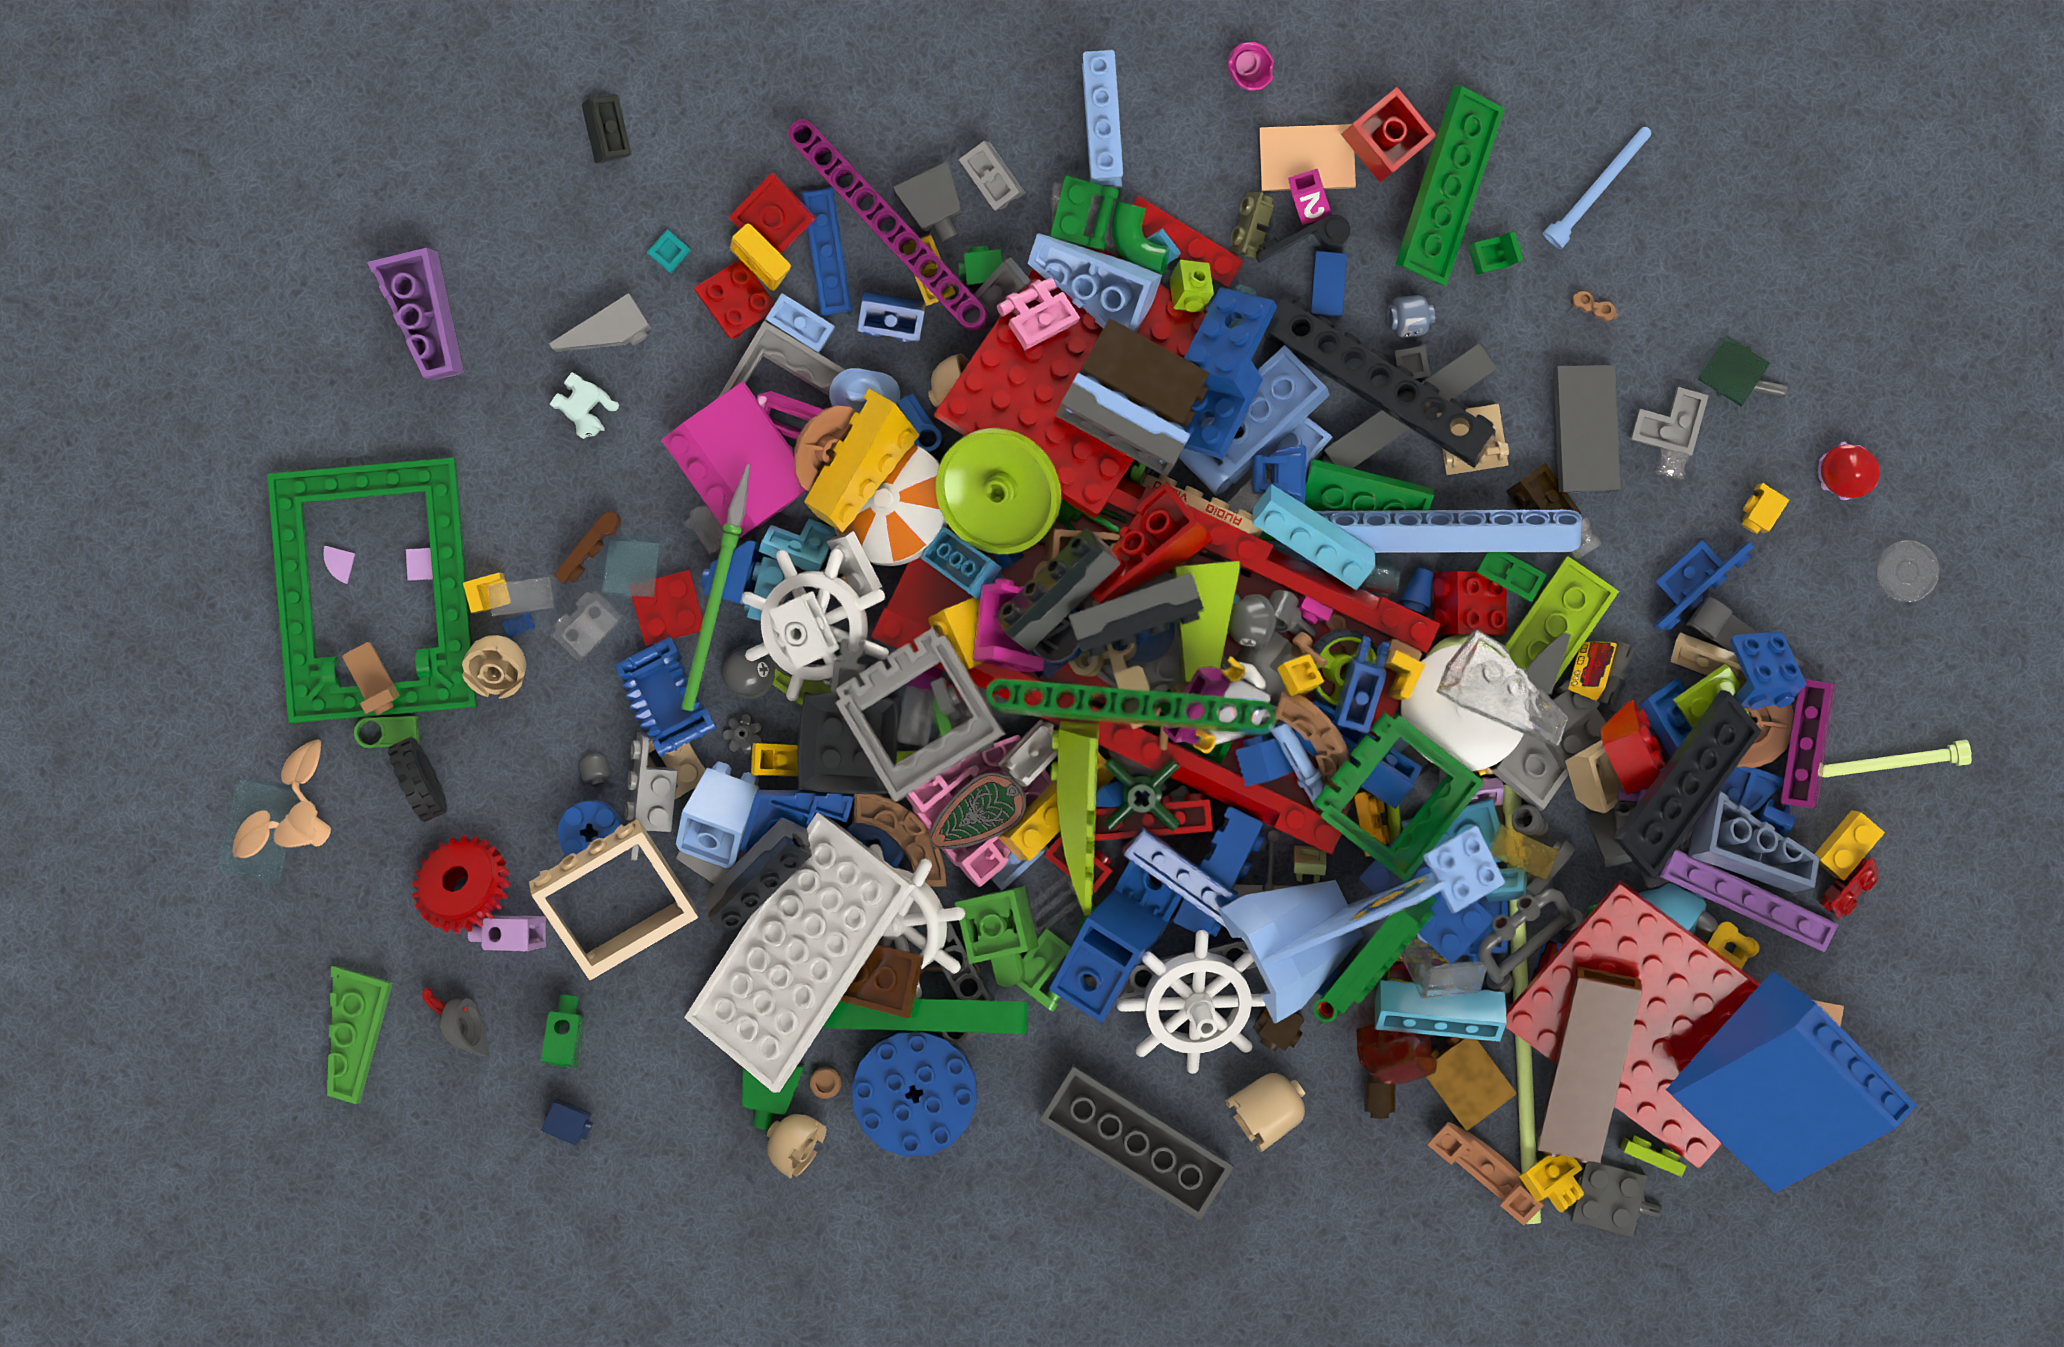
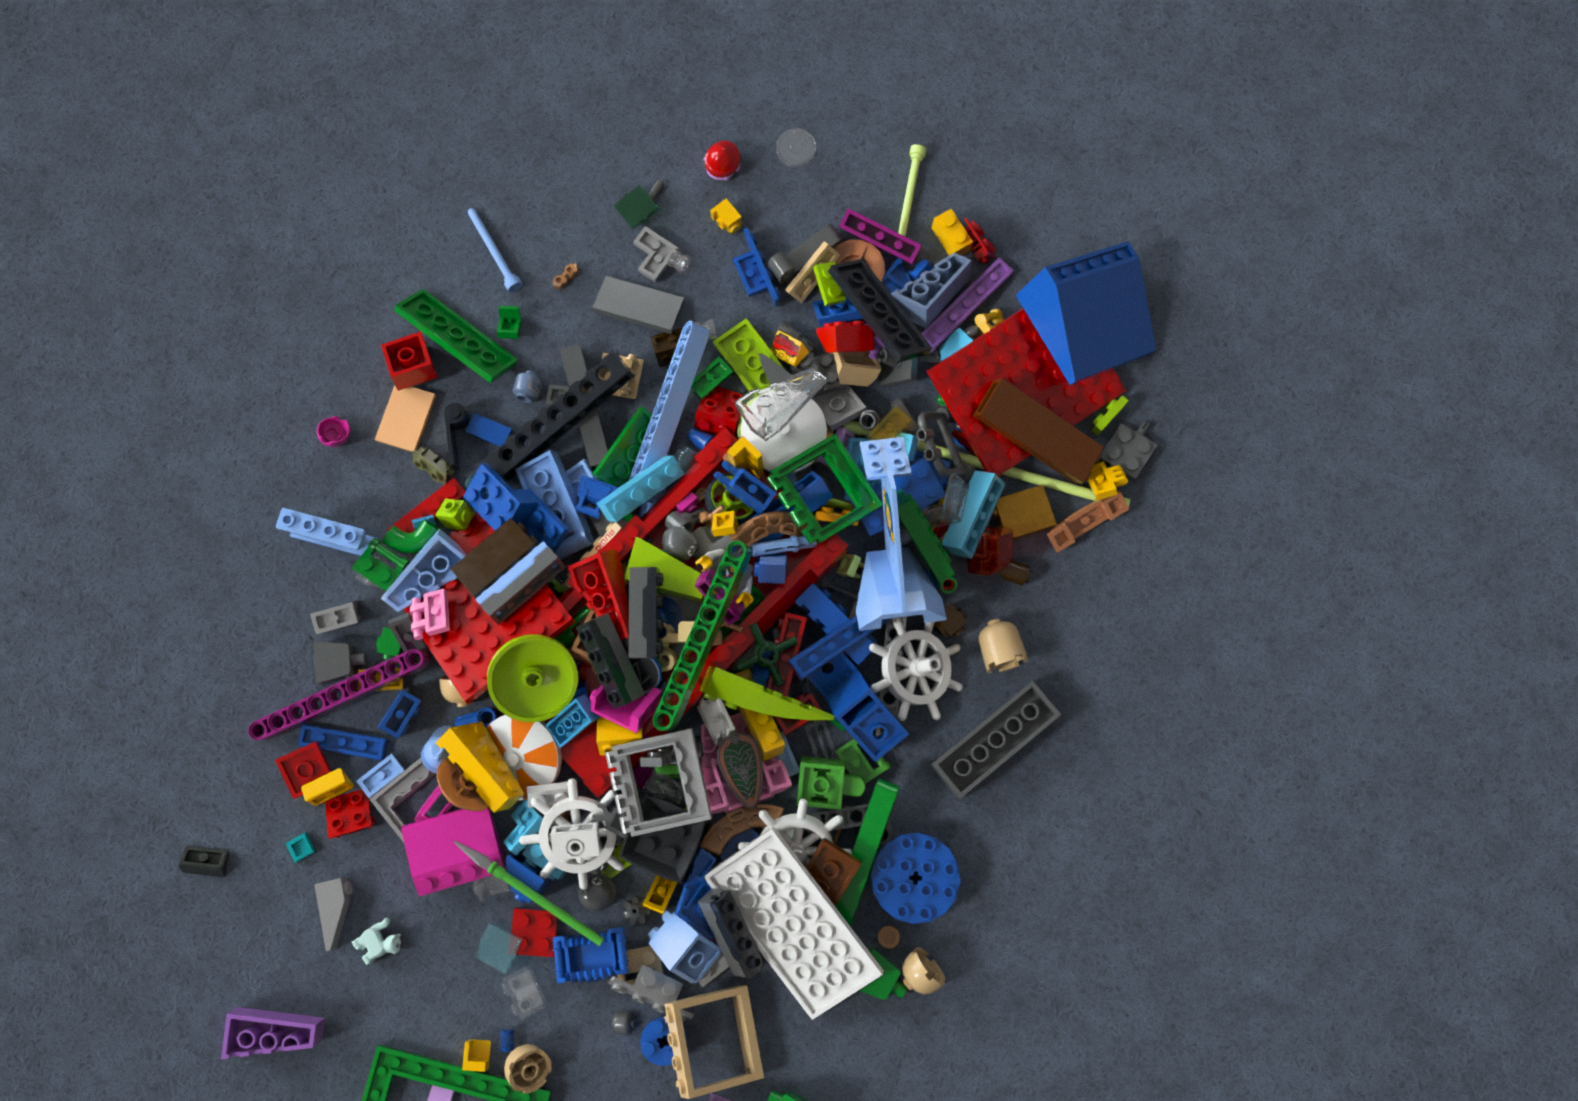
camera: 60 degrees left, 10 degrees down
(521, 596) = (488, 1032): clear tile -> none
(588, 546) = (472, 973): reddish brown hinge -> none
(1309, 196) = (428, 422): dark pink brick -> none
(1769, 670) = (826, 240): blue bracket -> none

